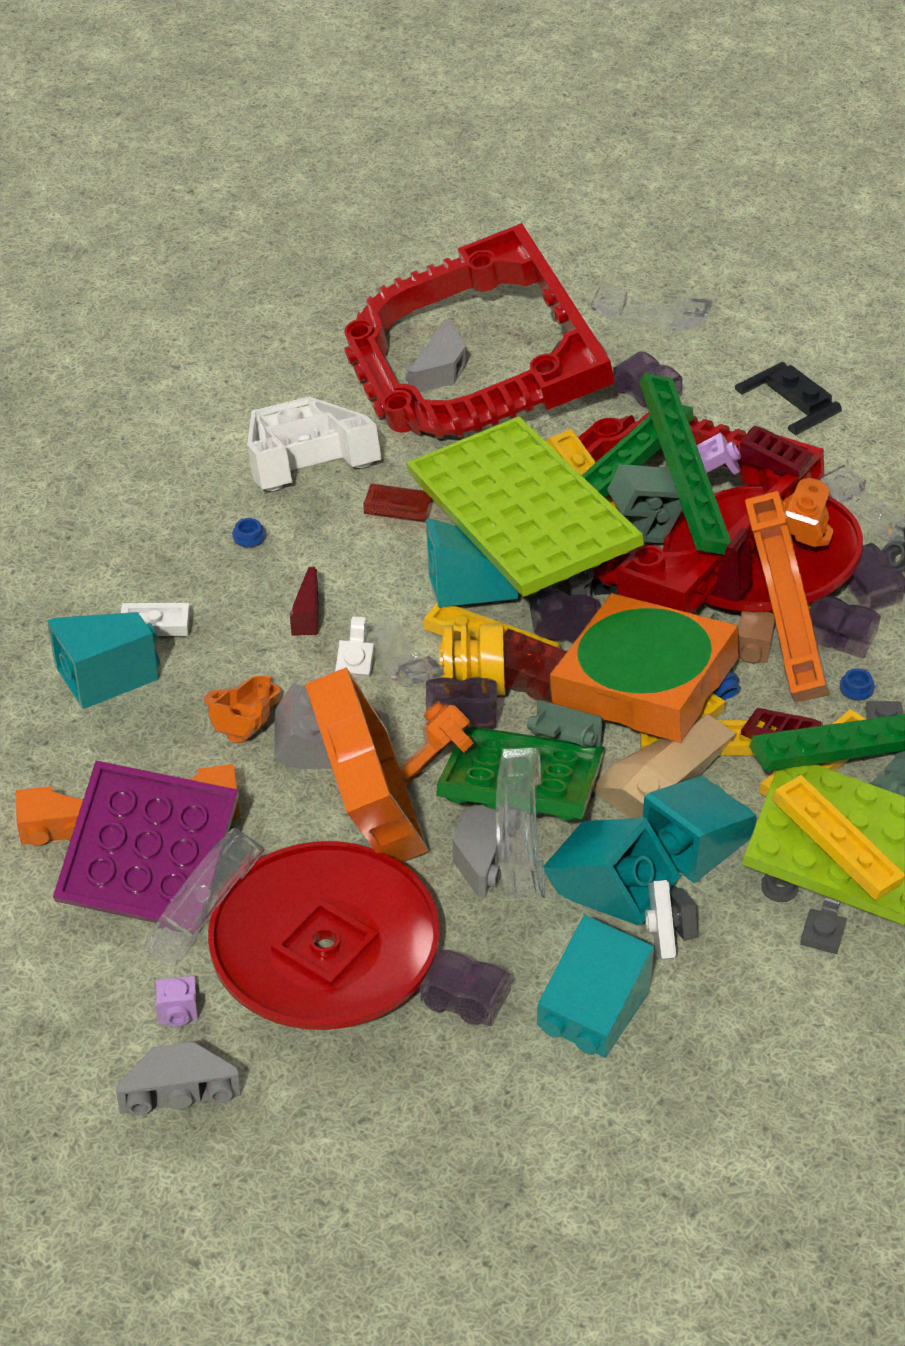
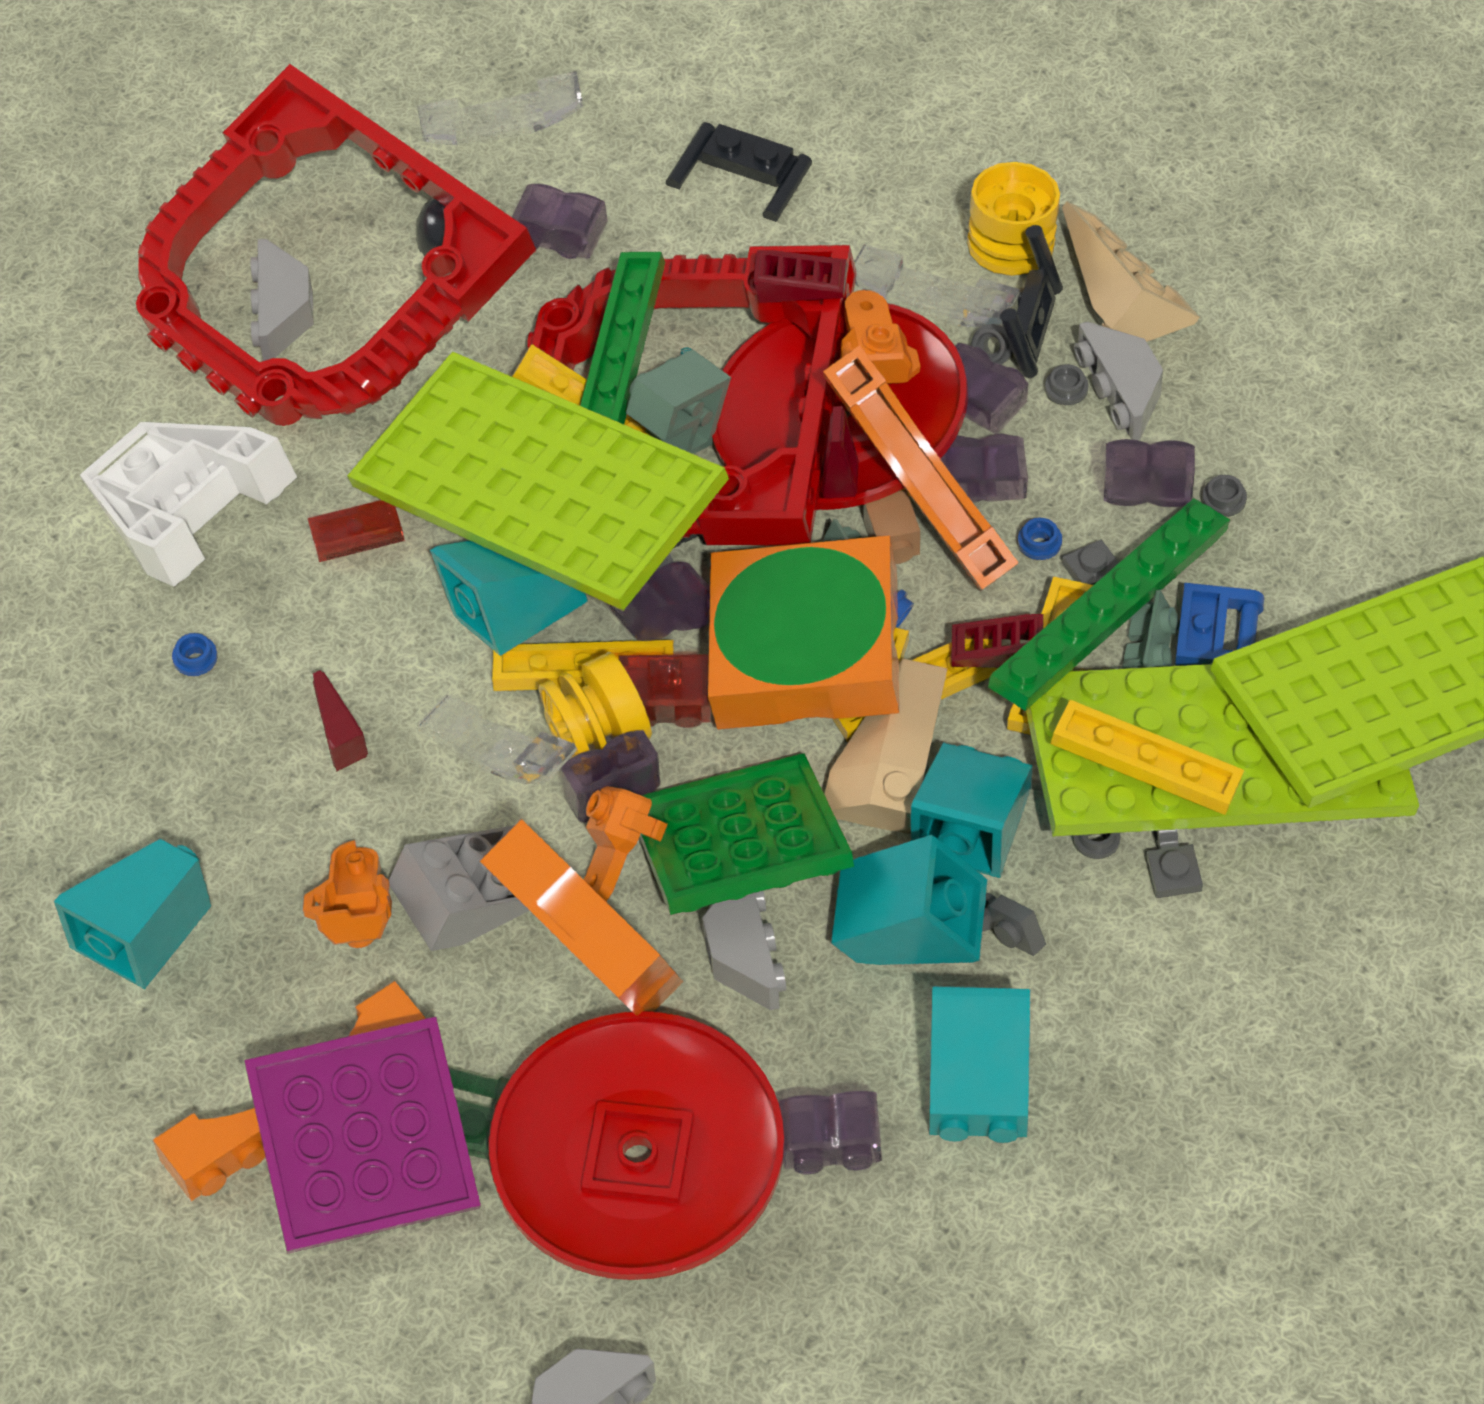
camera: 25 degrees left, 10 degrees up
(166, 618) = (170, 819): white plate -> none
(176, 1001) = (512, 1306): lavender bracket -> none
(200, 896) = (471, 1168): clear slope -> none
(356, 653) = (438, 765): white plate -> none
(516, 823) = (785, 903): clear slope -> none
(566, 724) = (758, 743): sand green hinge -> none
(660, 920) = (1002, 945): white plate -> none
(685, 464) = (705, 339): green plate -> none
(717, 452) = (727, 311): lavender bracket -> none

